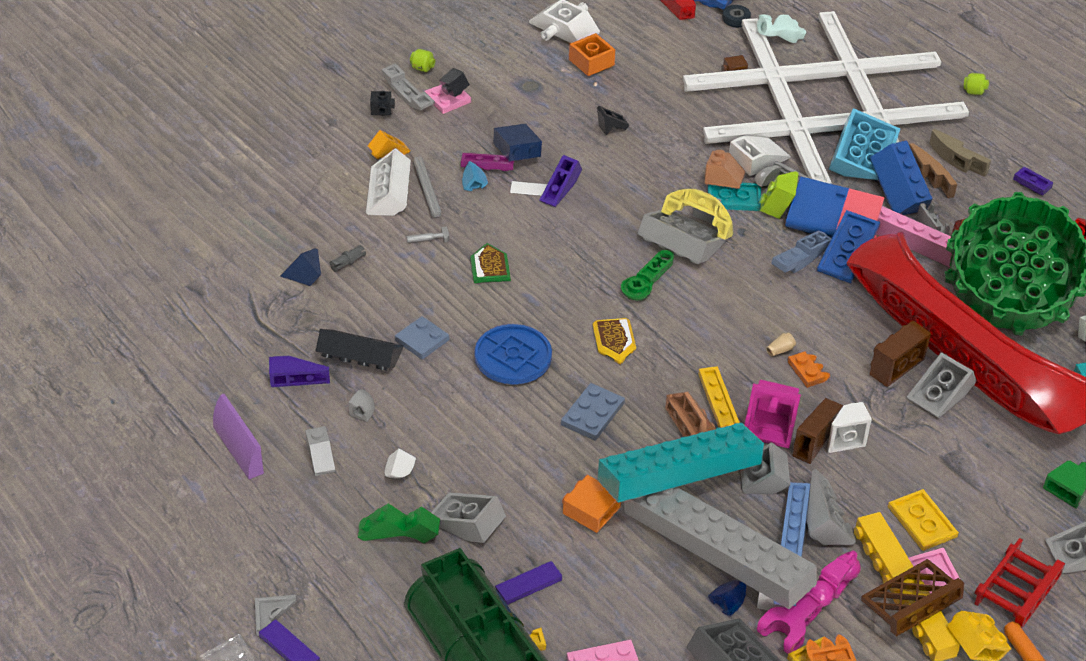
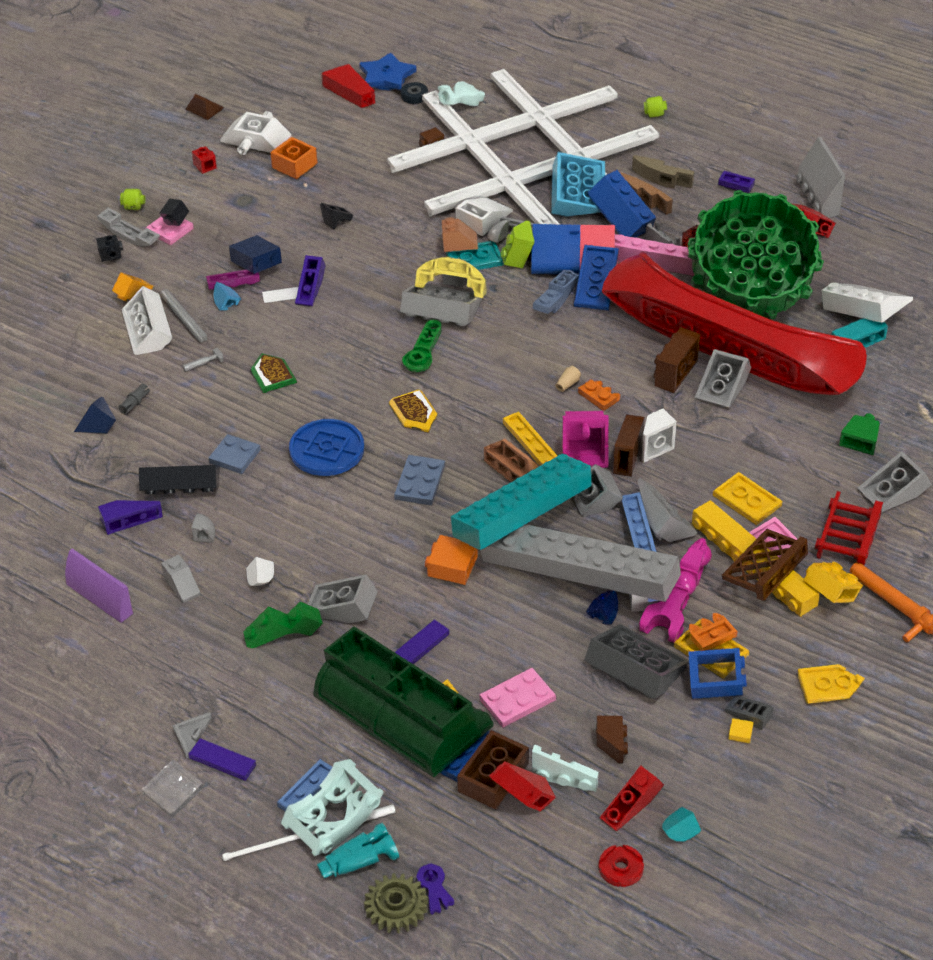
camera: 15 degrees left, 0 degrees up
(505, 36) = (204, 159): none -> red brick

